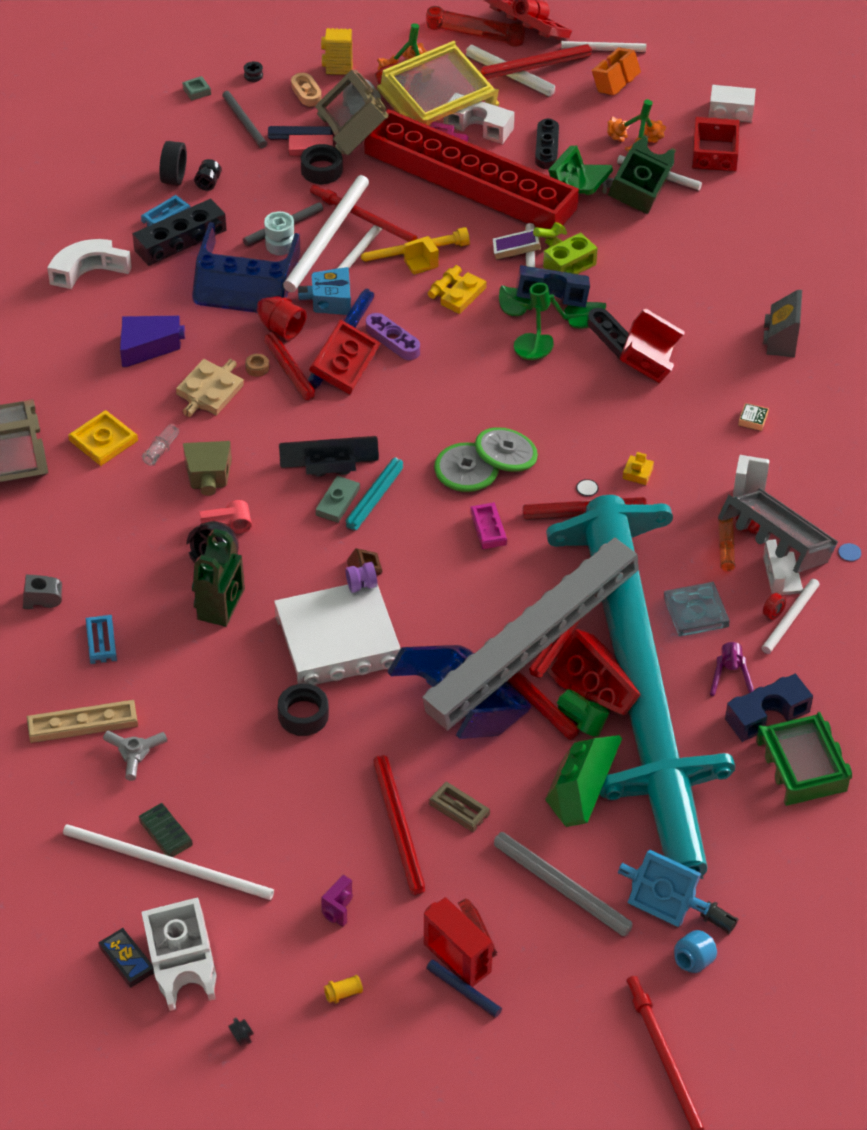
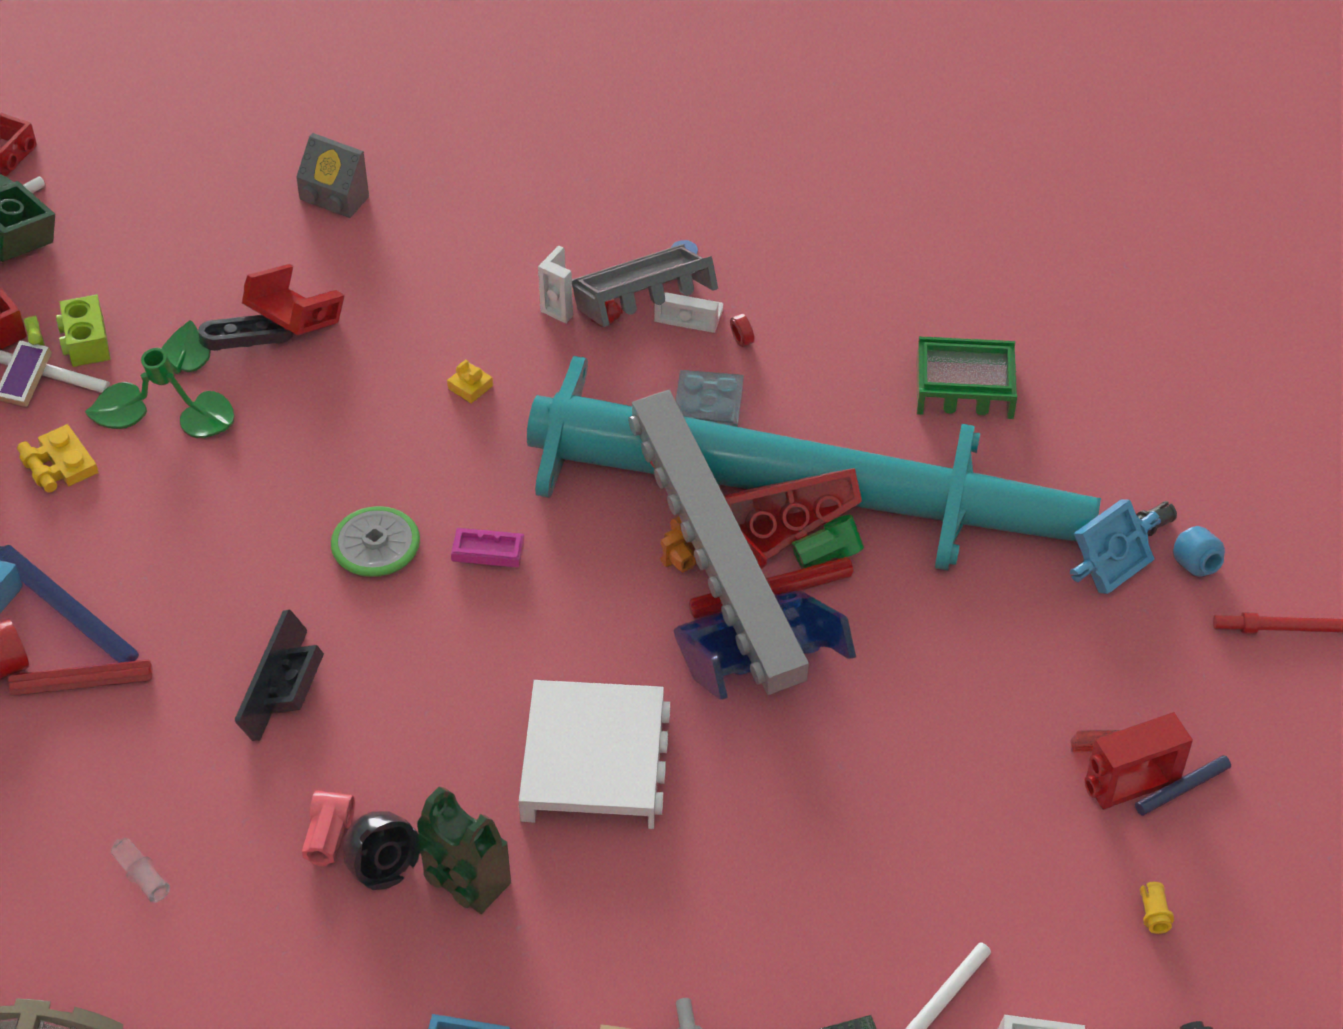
camera: 70 degrees left, 0 degrees up
(103, 437) = (78, 942): yellow tile -> none
(207, 465) = (217, 820): olive torso -> none
(209, 387) = (63, 781): tan plate -> none
(257, 365) = (53, 715): medium nougat tile -> none
(307, 725) = (703, 851): black tyre -> none
(336, 899) = (1021, 875): magenta bracket -> none
(337, 499) = (355, 692): sand green plate -> none
(344, 357) = (110, 608): red tile -> none
(361, 556) = (481, 697): reddish brown slope -> none
(361, 577) = (537, 688): medium lavender wheel -> none
(374, 494) = (368, 649): teal axle -> none
(396, 345) = (93, 561): medium lavender beam -> none
(399, 825) = (921, 779): red axle -> none
(456, 810) = (918, 715): dark tan tile -> none
(506, 449) = (370, 492): light grey wheel -> none
(563, 884) = (1060, 645): light grey axle -> none
(566, 509) = (504, 451): red axle -> none
(568, 287) = (117, 368): dark blue arch -> none
(581, 779) = (928, 576): green wedge -> none
(587, 487) = (468, 439): white sticker -> none
(726, 544) = (620, 339): clear orange piece -> none
(732, 659) = (800, 389): magenta plant -> none
(753, 416) = (445, 257): tile -> none
(785, 696) = (885, 401): dark blue arch -> none
(790, 616) = (757, 326): white bar -> none

